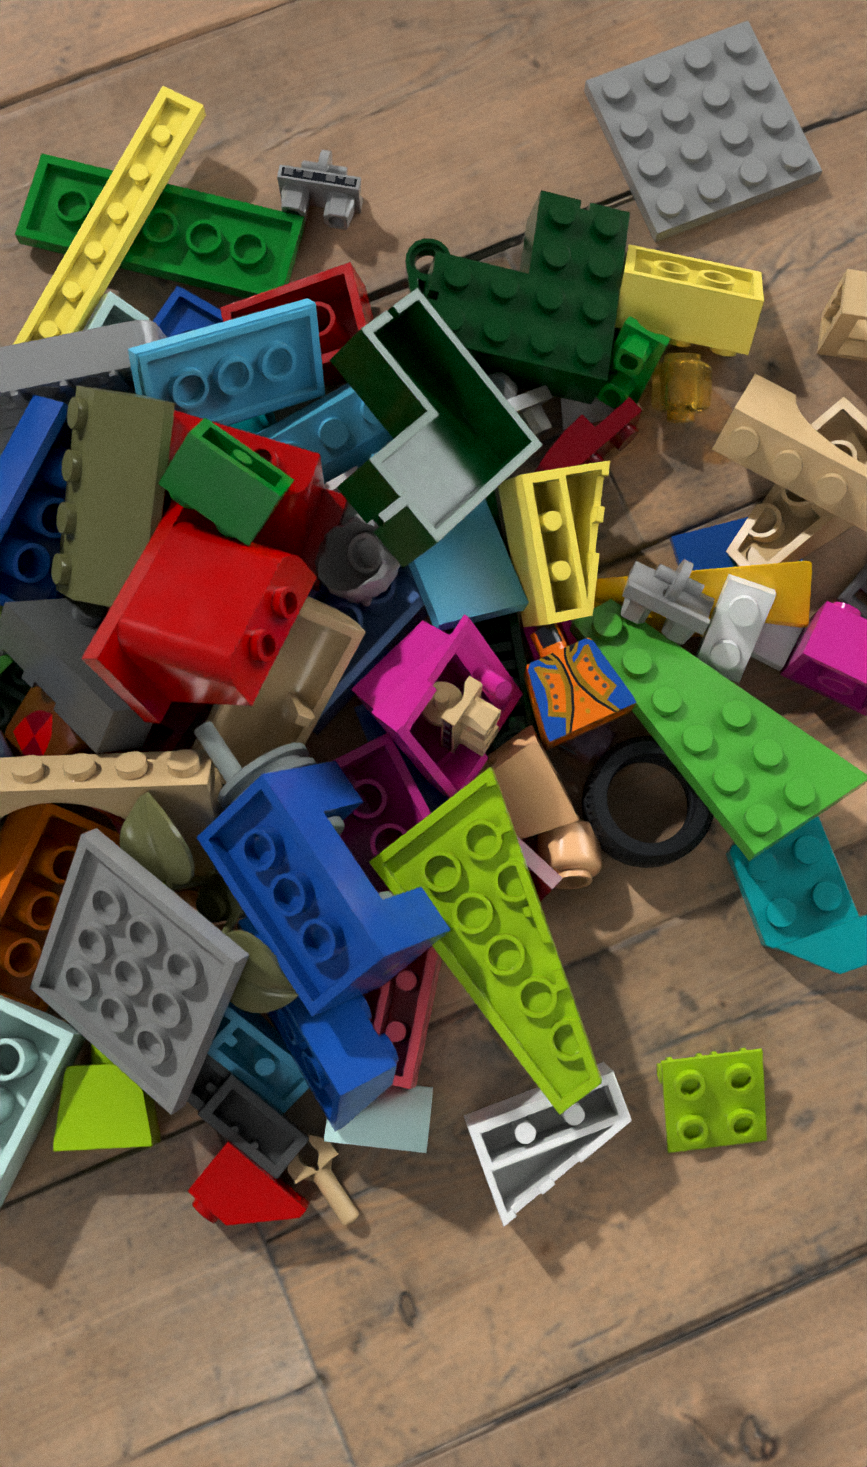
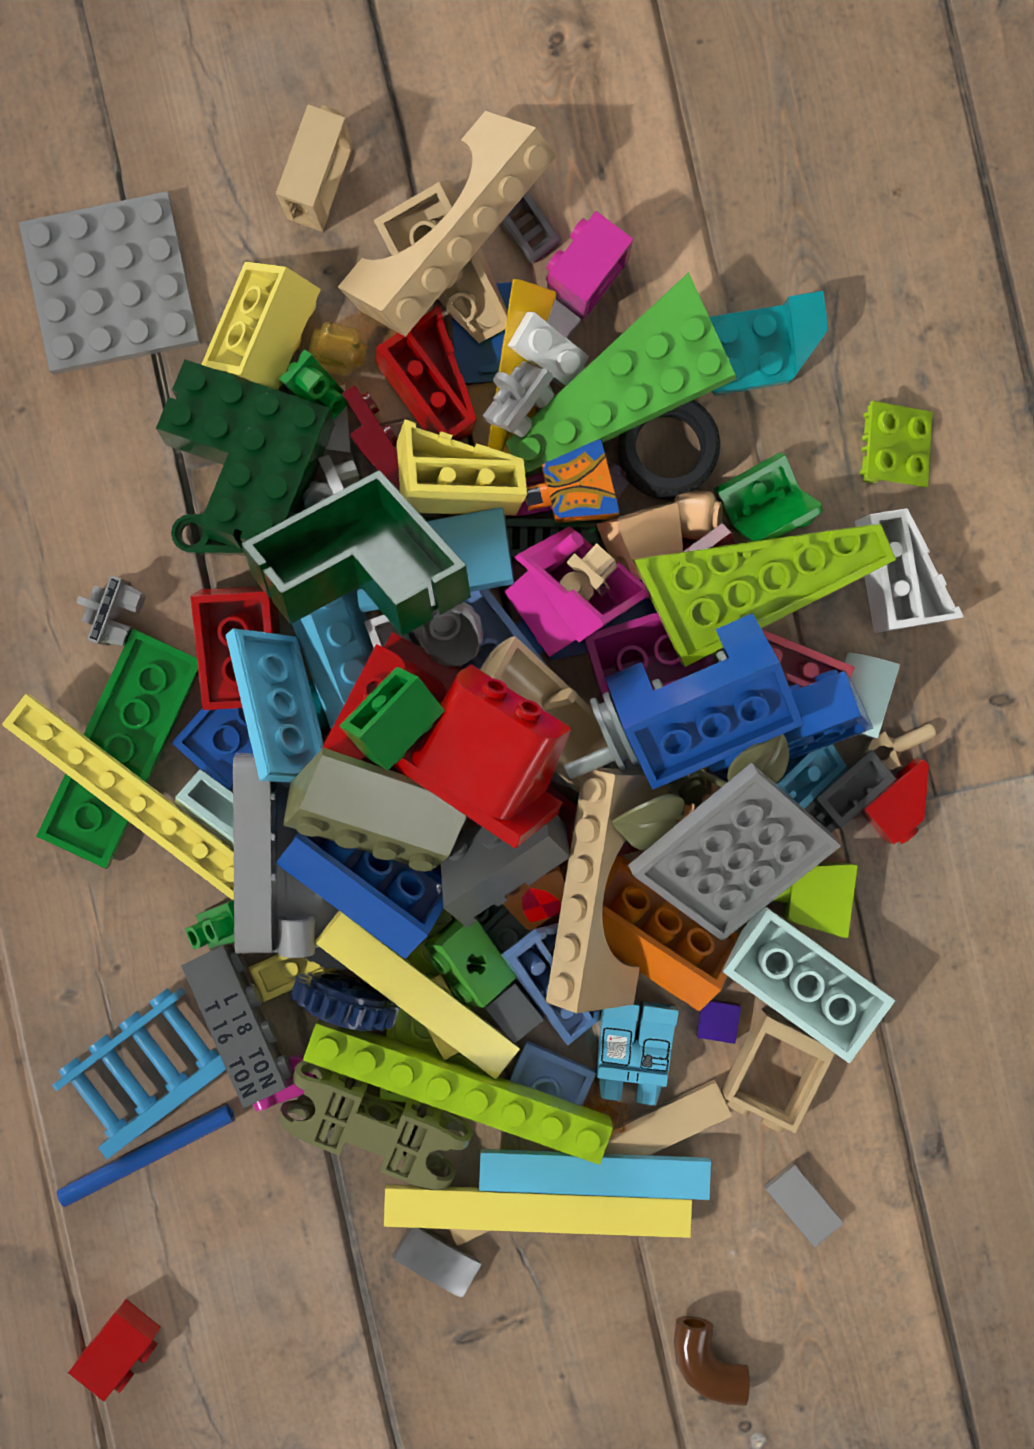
camera: 70 degrees left, 10 degrees up
(605, 938) = (767, 501): none -> green bracket
(671, 494) = (428, 377): none -> red wedge

